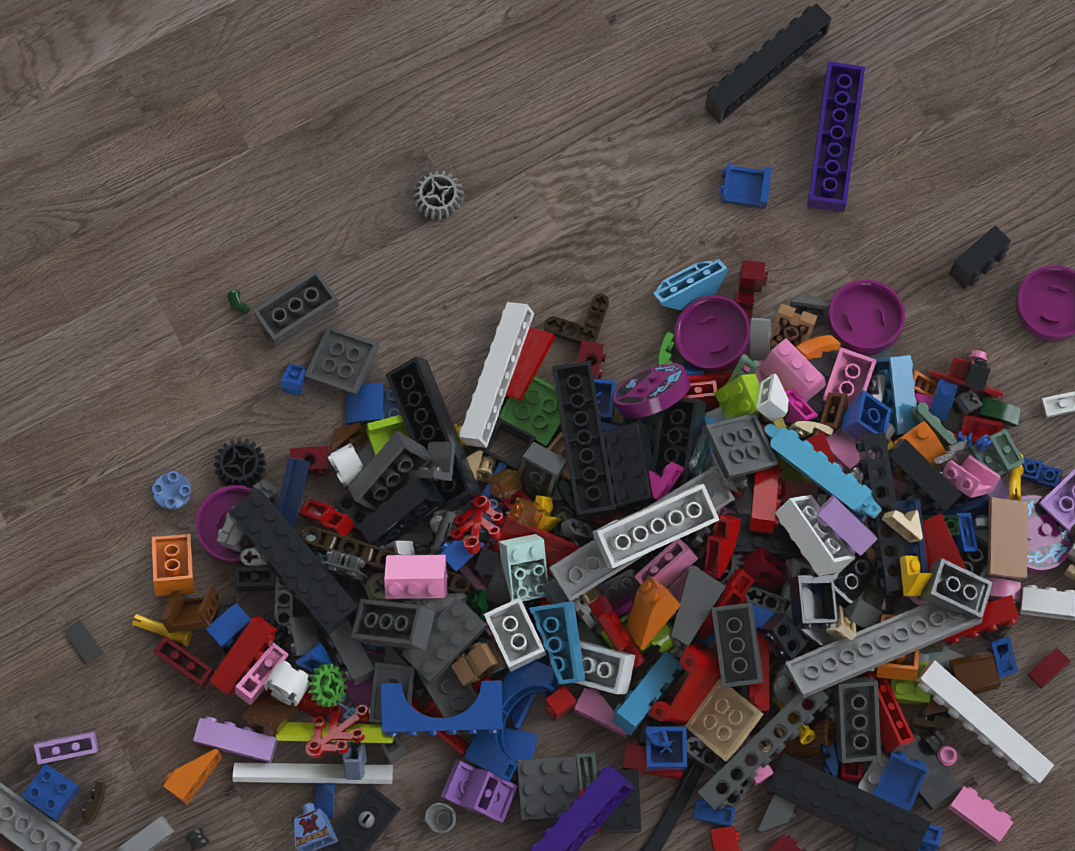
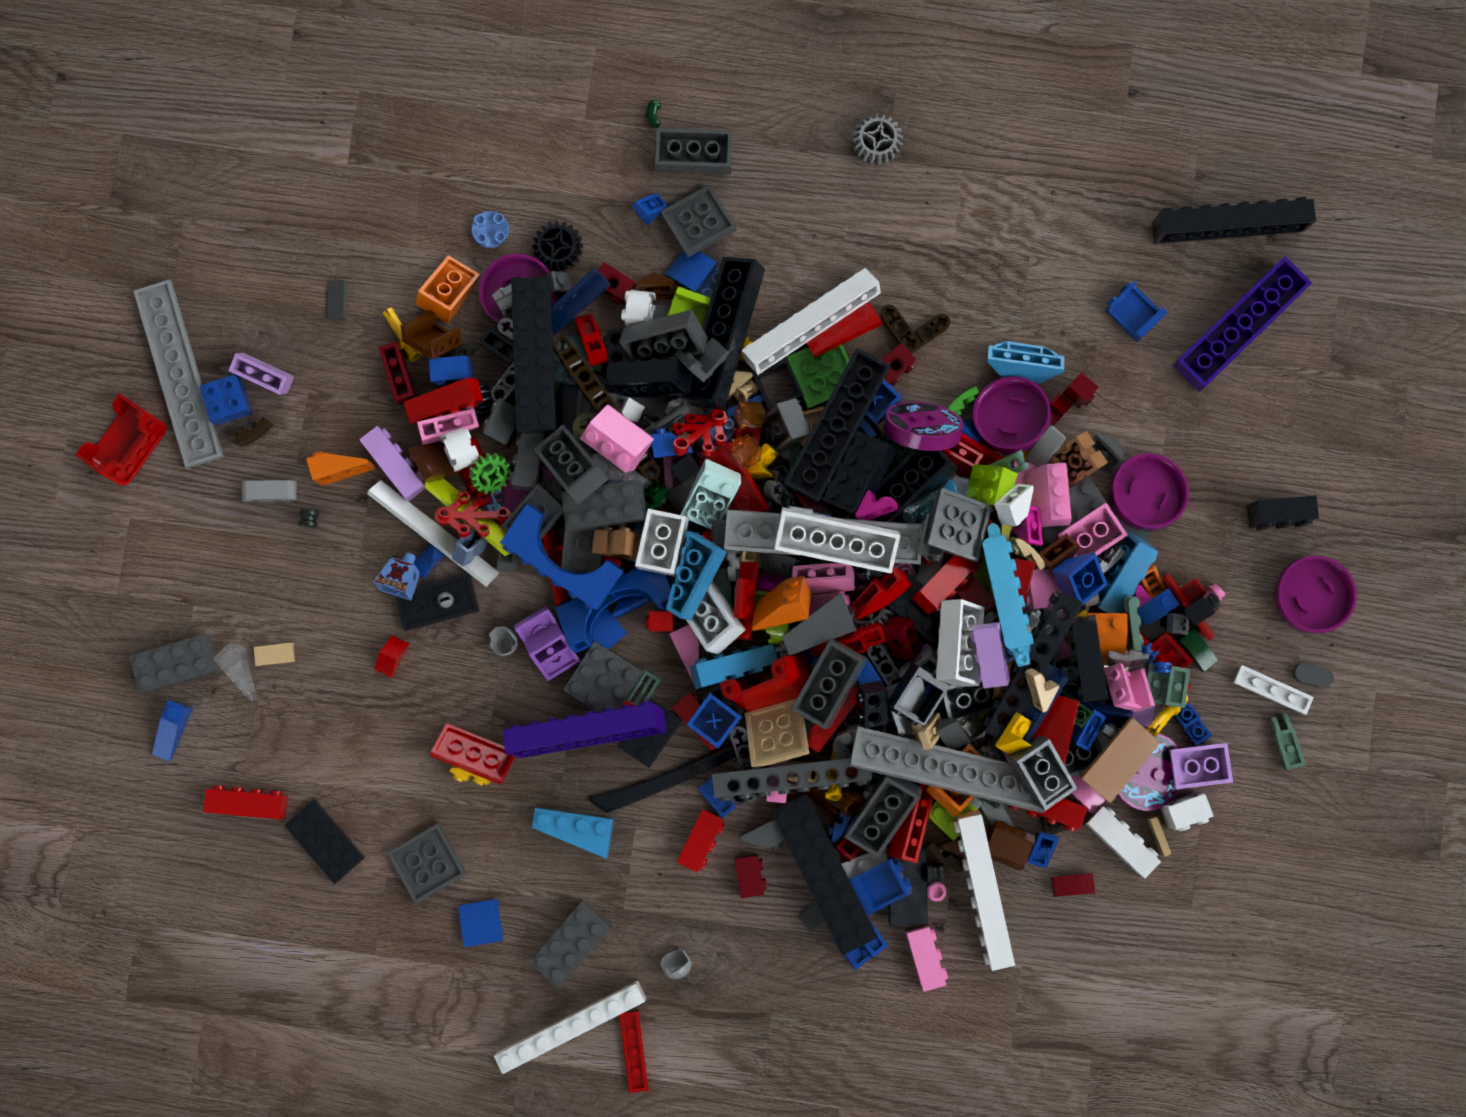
camera: 45 degrees right, 10 degrees up
(314, 658) = (497, 444): blue slope -> none
(343, 564) = (572, 389): dark grey hinge -> none
(658, 737) = (712, 709): blue tile -> none
(814, 347) = (1086, 487): orange slope -> none

